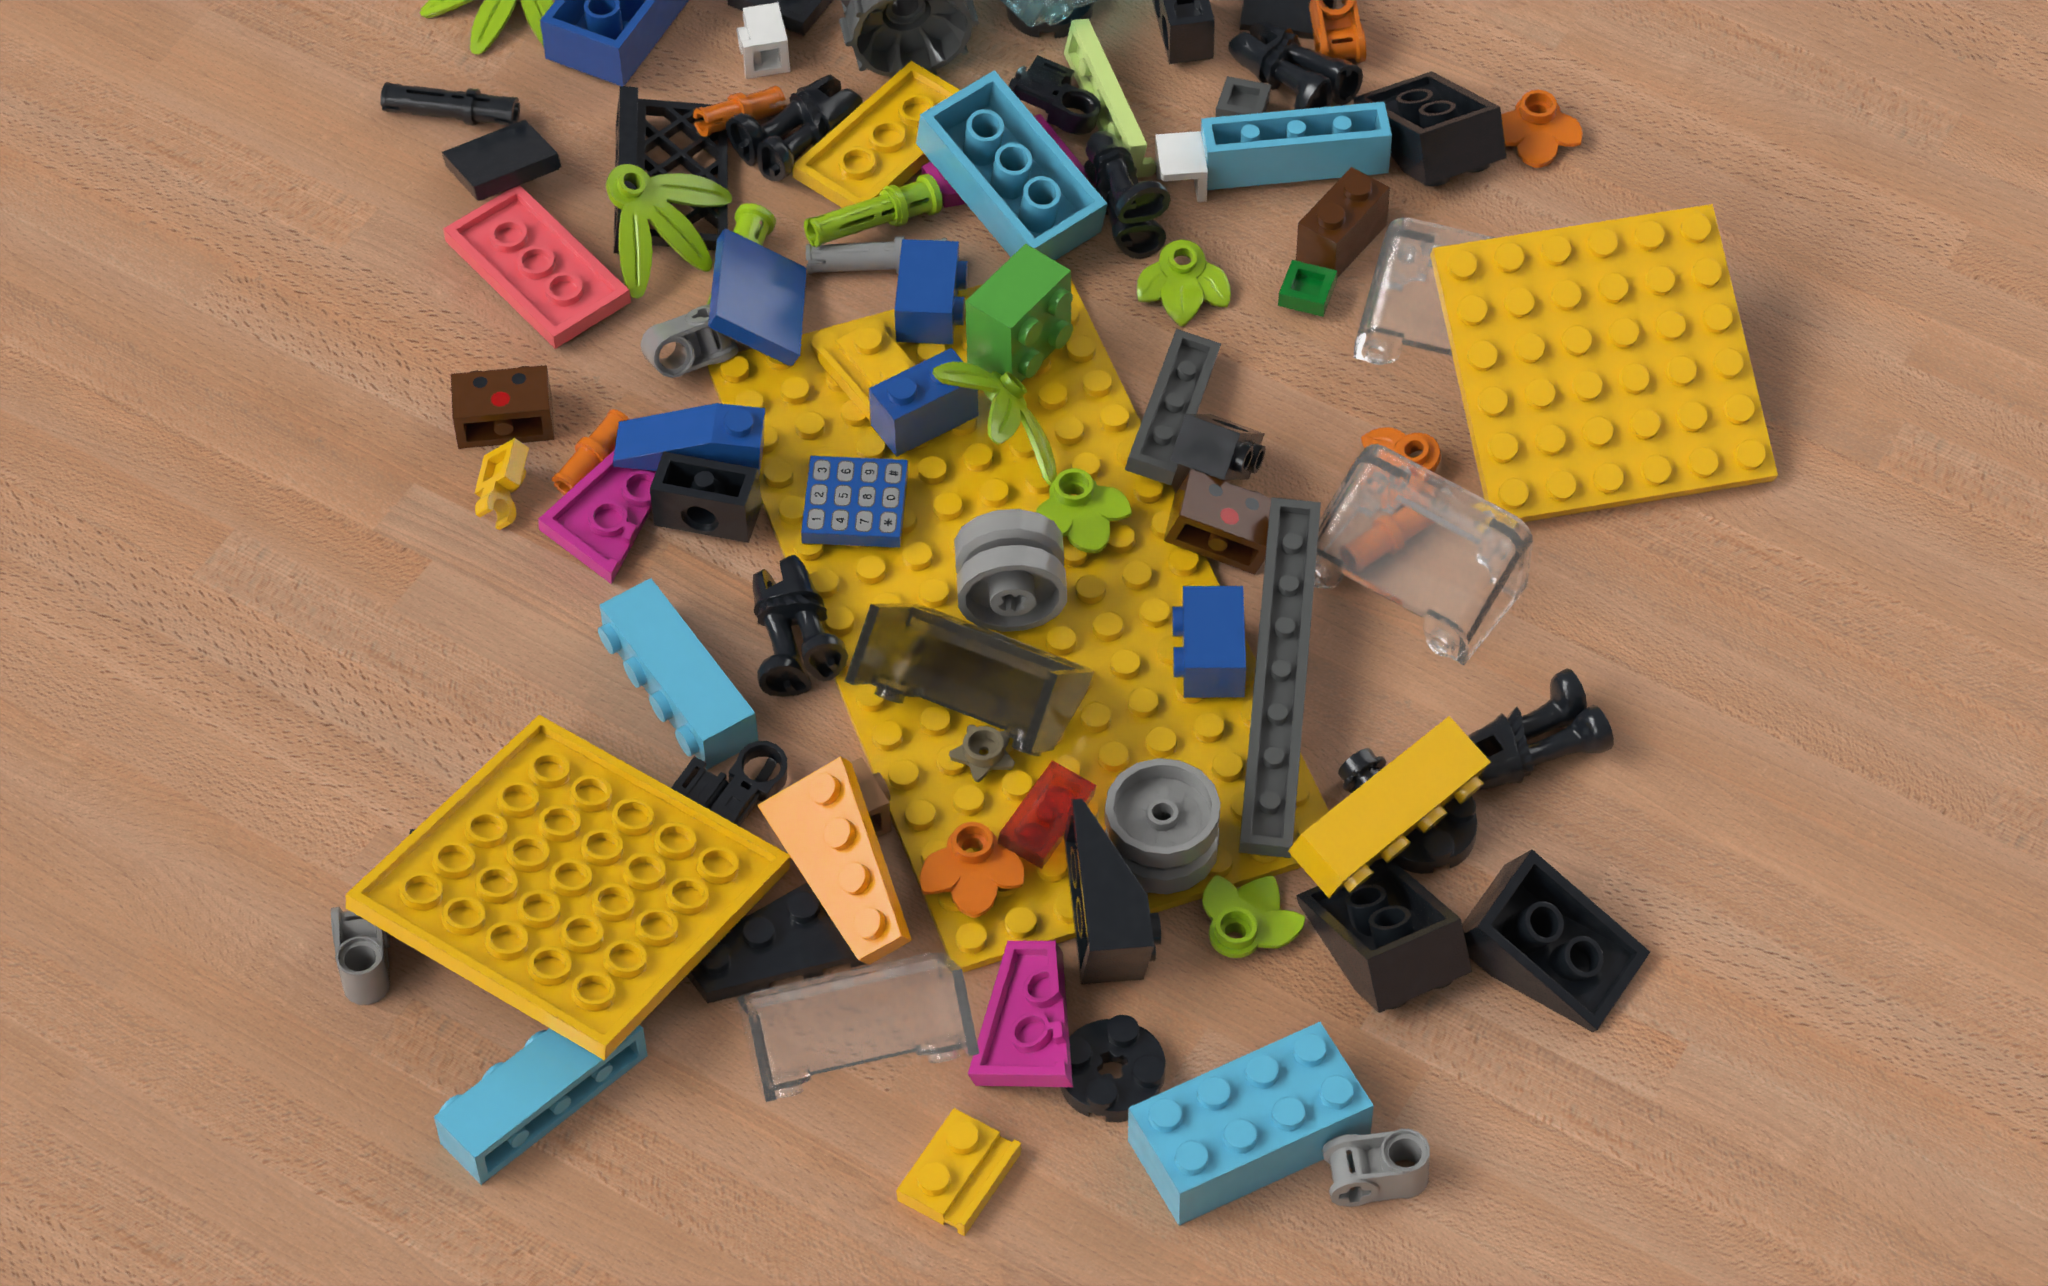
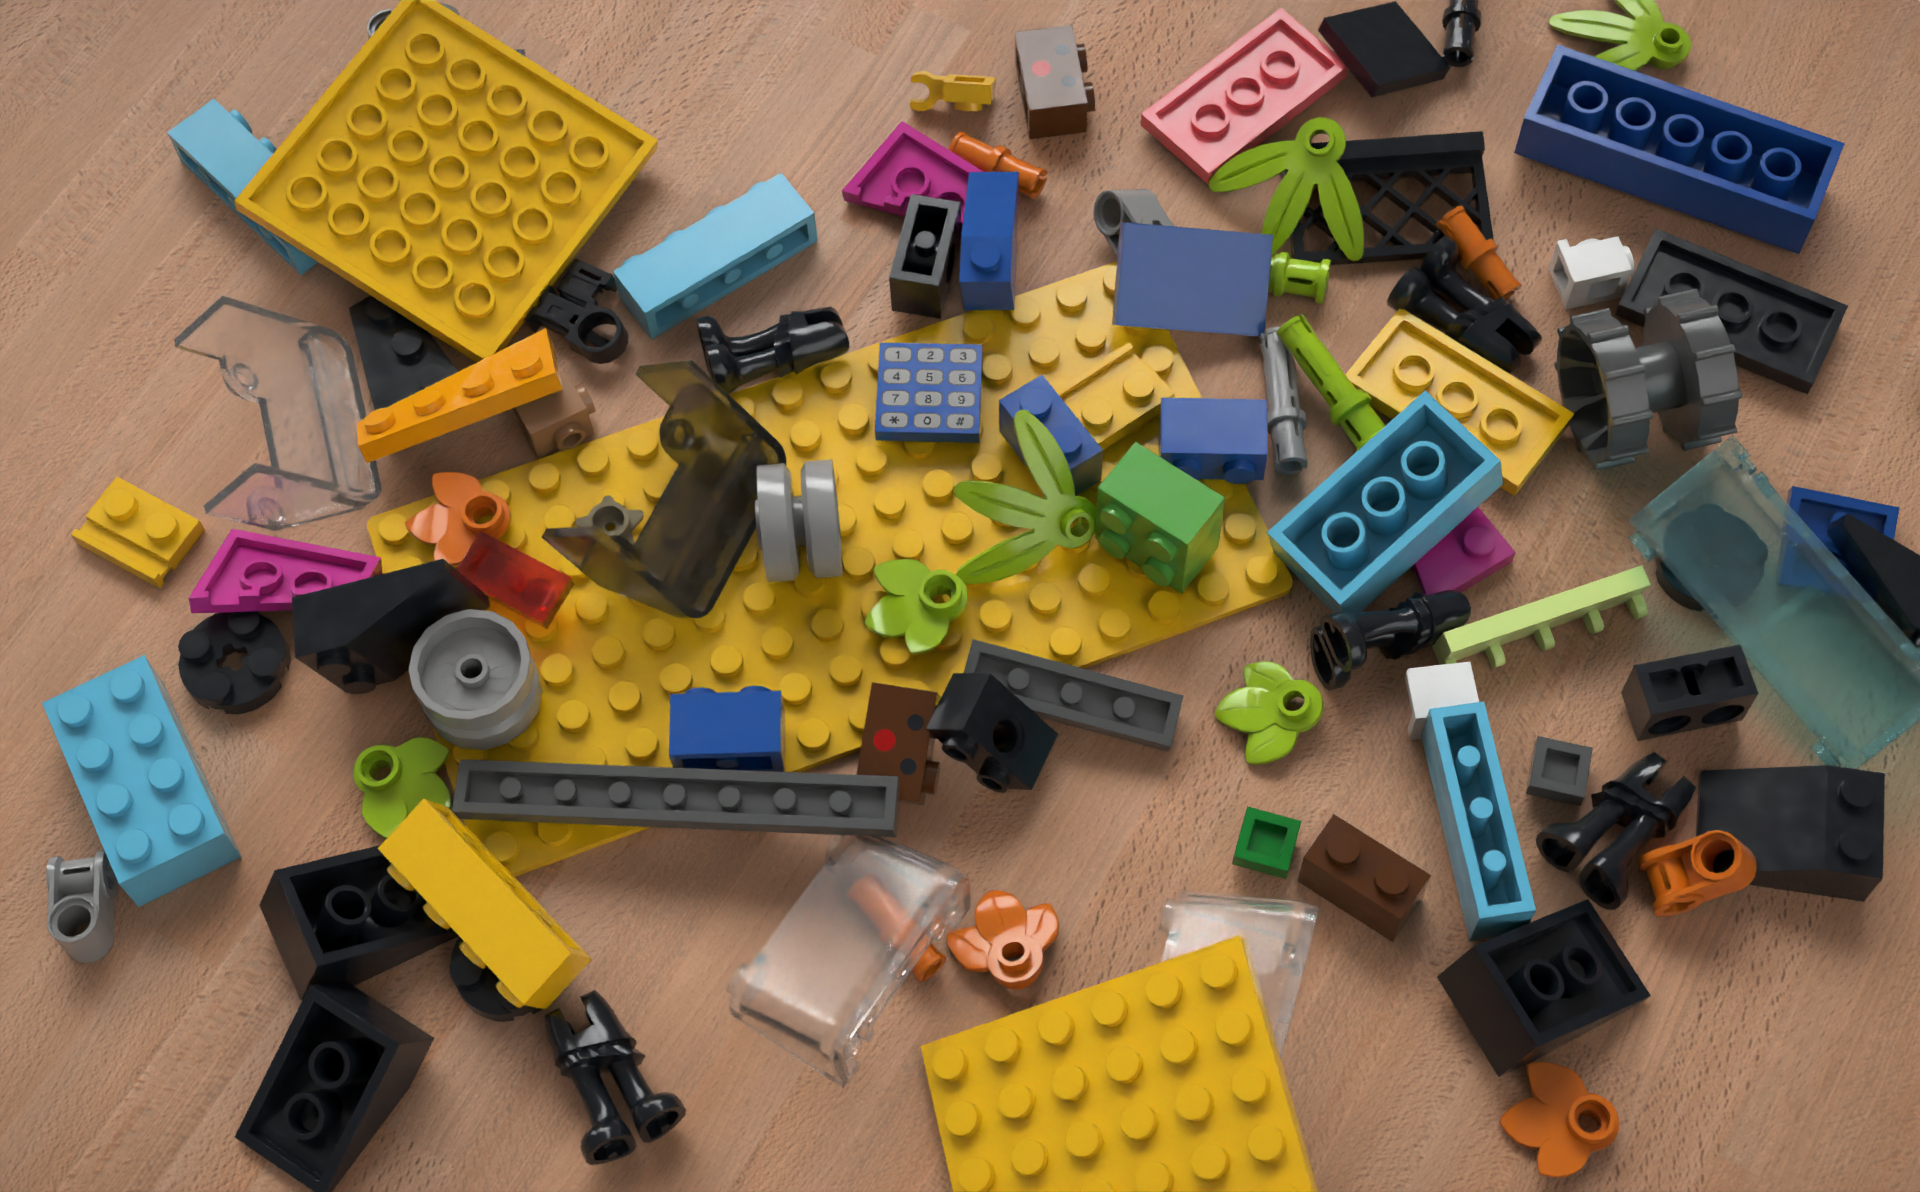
camera: 90 degrees right, 10 degrees up
(1050, 89) = (1546, 551): black piece -> none
(1360, 768) = (573, 897): black plate -> none

